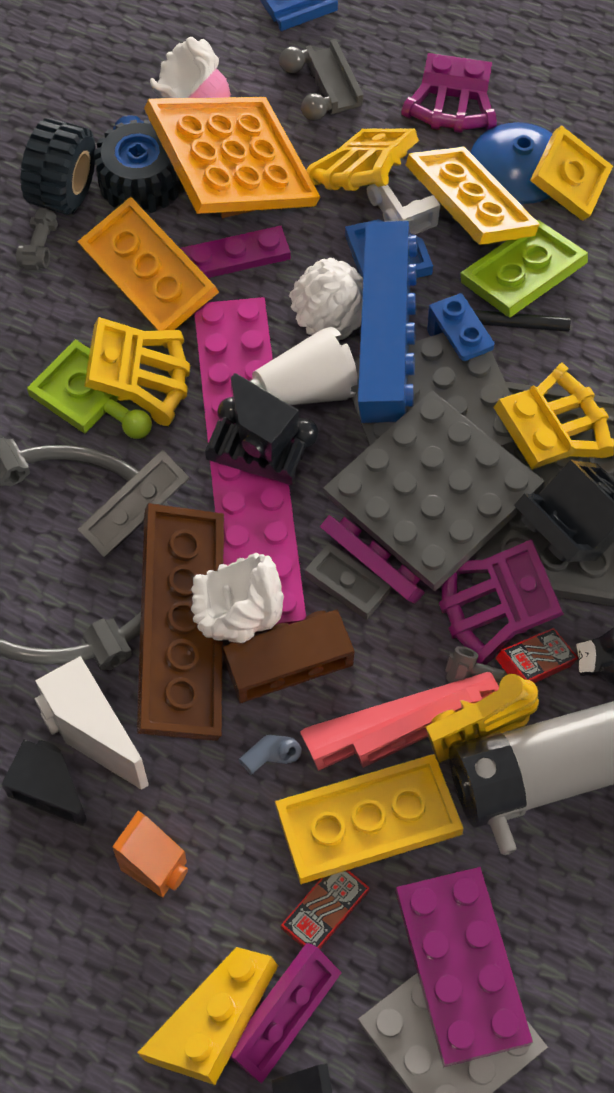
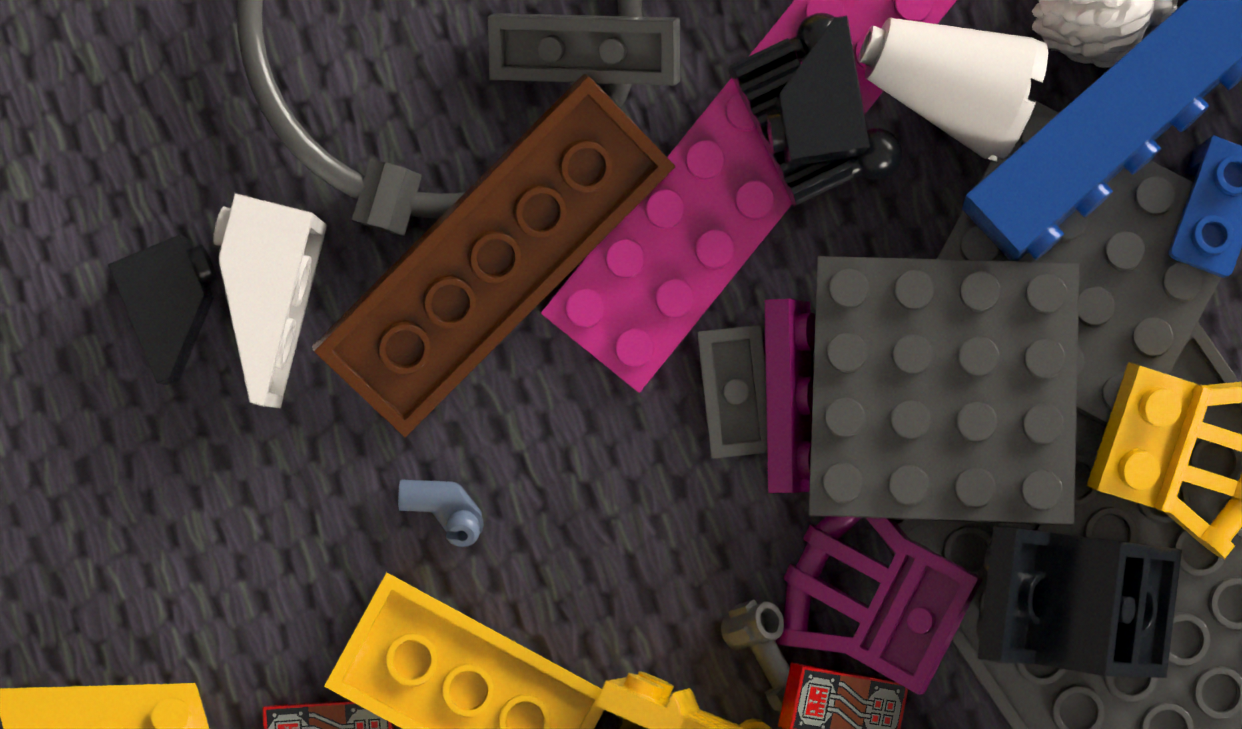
camera: 40 degrees right, 25 degrees up
(150, 855) = (190, 507): orange slope -> none
(238, 599) = (564, 308): white hair -> none
(289, 655) = (573, 415): reddish brown brick -> none
(392, 725) = (613, 618): coral wedge -> none

